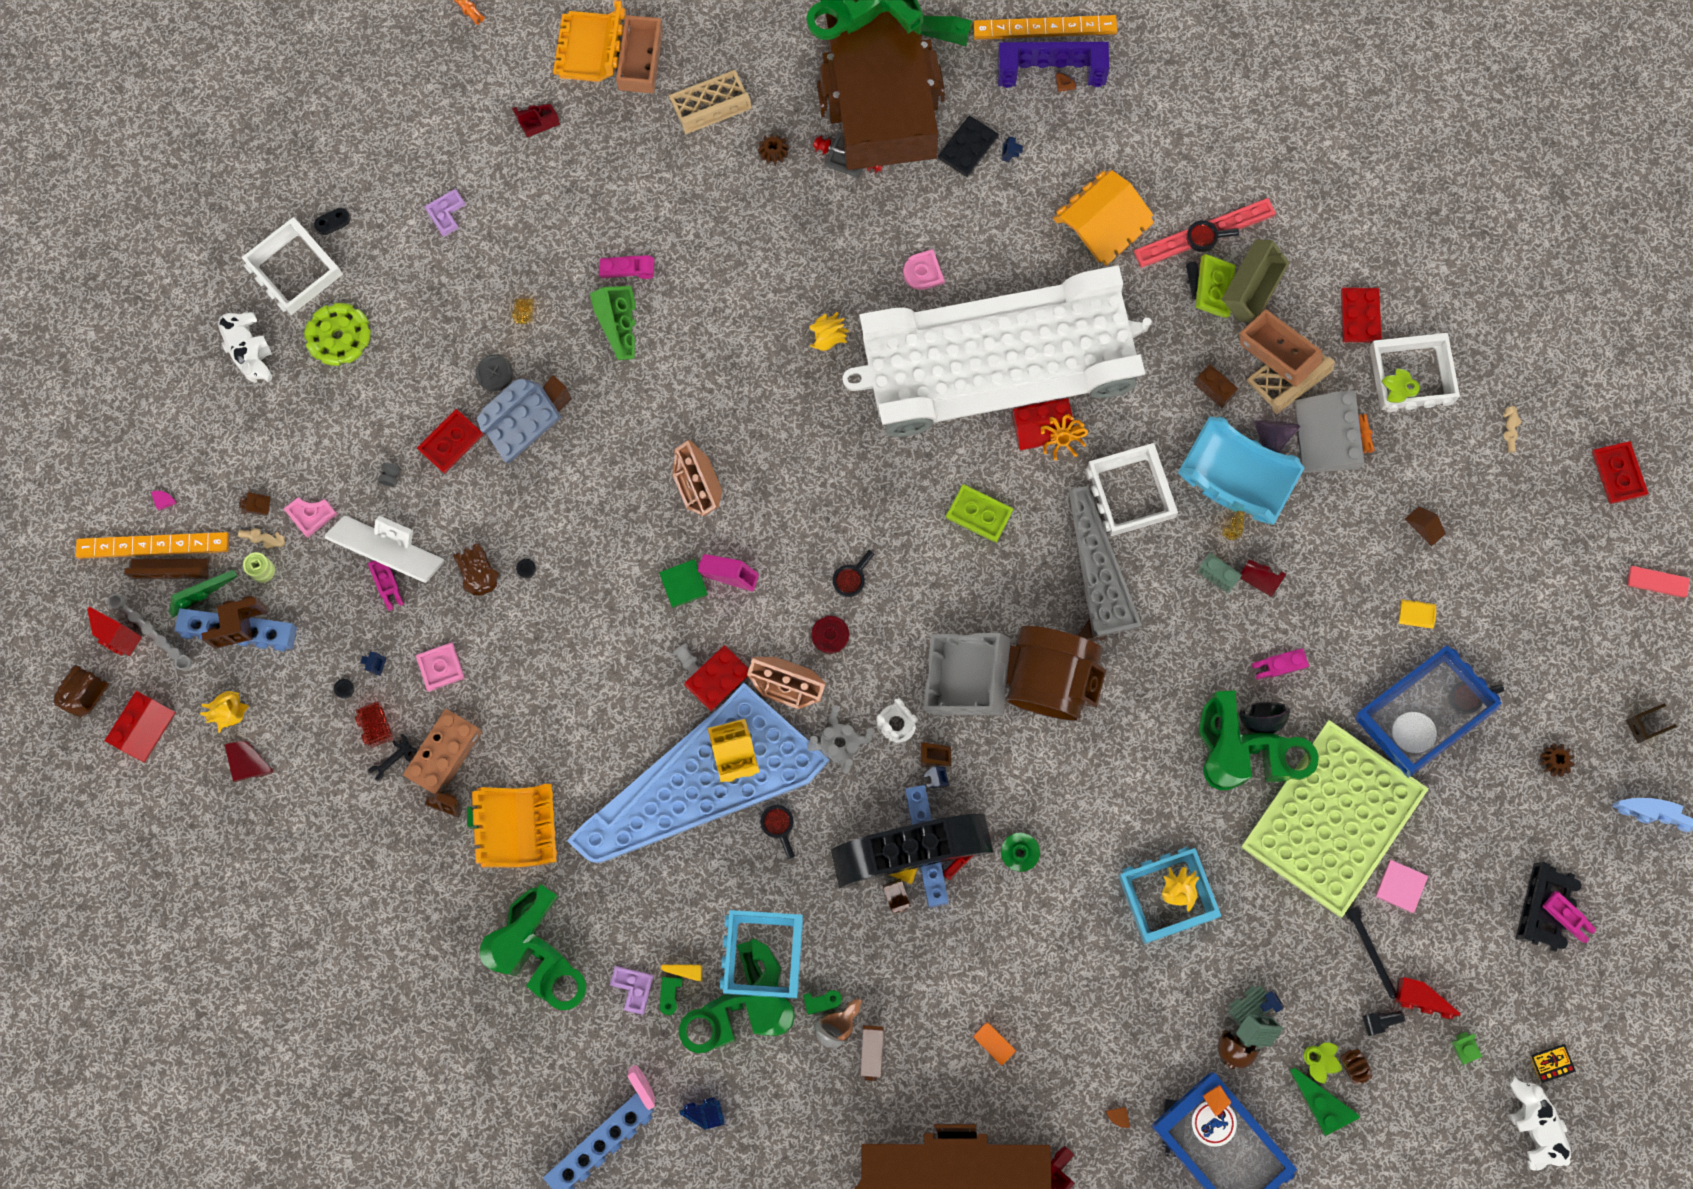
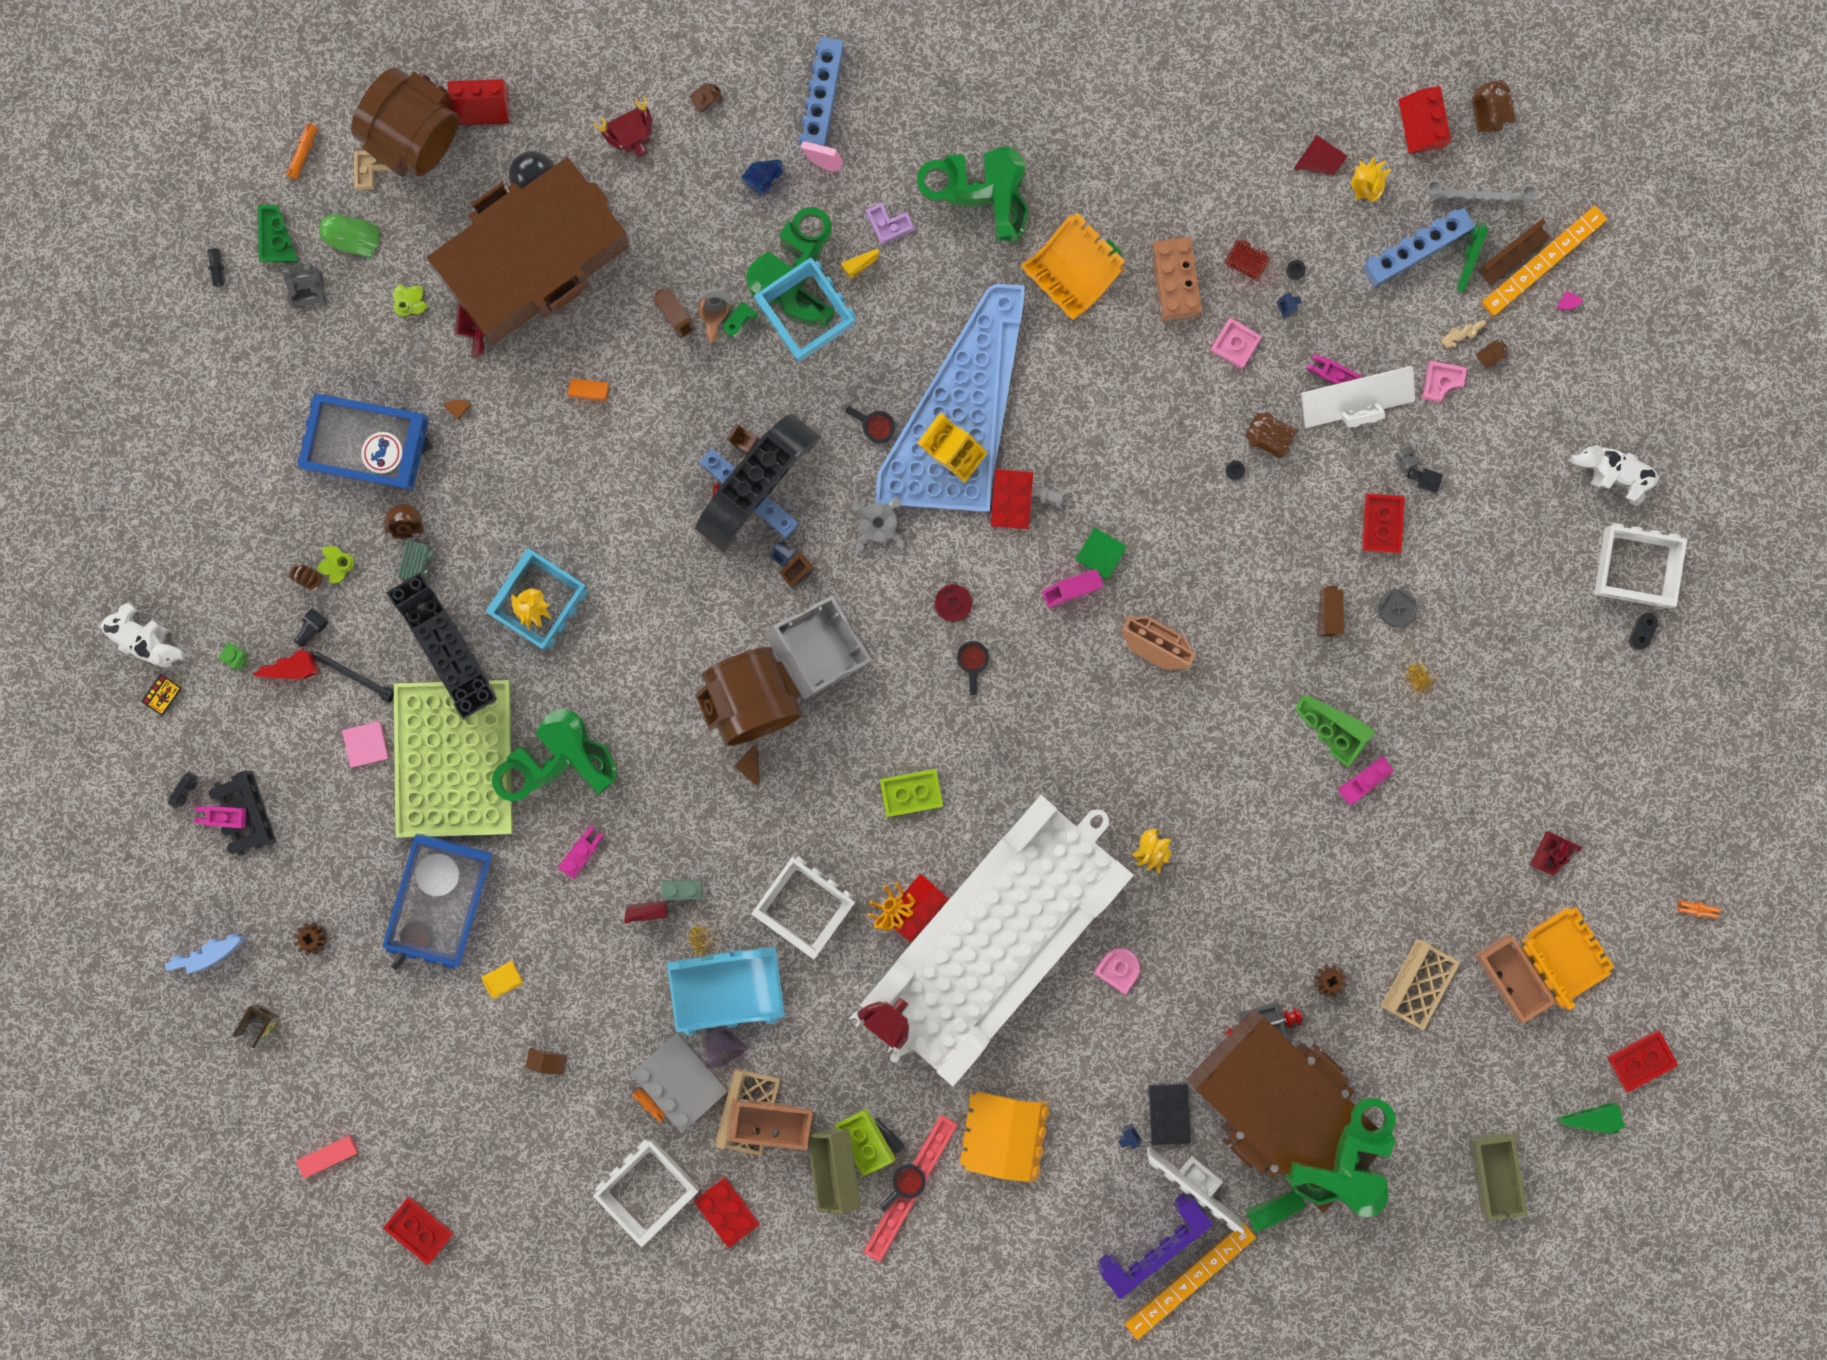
camera: 140 degrees right, 10 degrees up
(112, 633) = (1509, 166): red slope -> none
(234, 622) = (1420, 244): reddish brown bracket -> none
(259, 567) = (1440, 310): yellowish green wheel -> none
(330, 326) = (1564, 539): lime plate -> none
(388, 448) = (1427, 479): none -> black plate
(405, 749) = (1208, 261): black bar -> none
(441, 210) = (1562, 712): lavender tile -> none
(445, 803) = (1138, 243): reddish brown wing -> none
(517, 417) = (1343, 581): sand blue plate -> none
(668, 995) = (857, 237): green leg -> none
(786, 681) = (957, 537): nougat wedge -> none
(900, 710) = (845, 558): white piece -> none
(986, 83) = (1200, 1182): none -> white bracket
(1022, 842) = (668, 538): green dish -> none
(1064, 83) = (1133, 1239): dark orange tile -> none
(1106, 591) = (763, 806): light grey wing -> none
(1135, 345) = (886, 1022): none -> dark red torso
(1216, 386) = (800, 1051): reddish brown brick -> none
(1217, 1100) = (389, 467): orange slope -> none
(1259, 1030) = (395, 545): sand green brick -> none
(1265, 717) = (561, 796): black cylinder -> none
(1272, 1002) = (399, 573): dark blue tile -> none
(1278, 905) = (443, 645): none -> black slope
(1326, 1109) = (305, 530): green wing -> none
(1398, 386) = (649, 1164): lime plate -> none
(1512, 422) = (536, 1209): tan animal -> none
(1579, 967) = (186, 784): none -> black plate

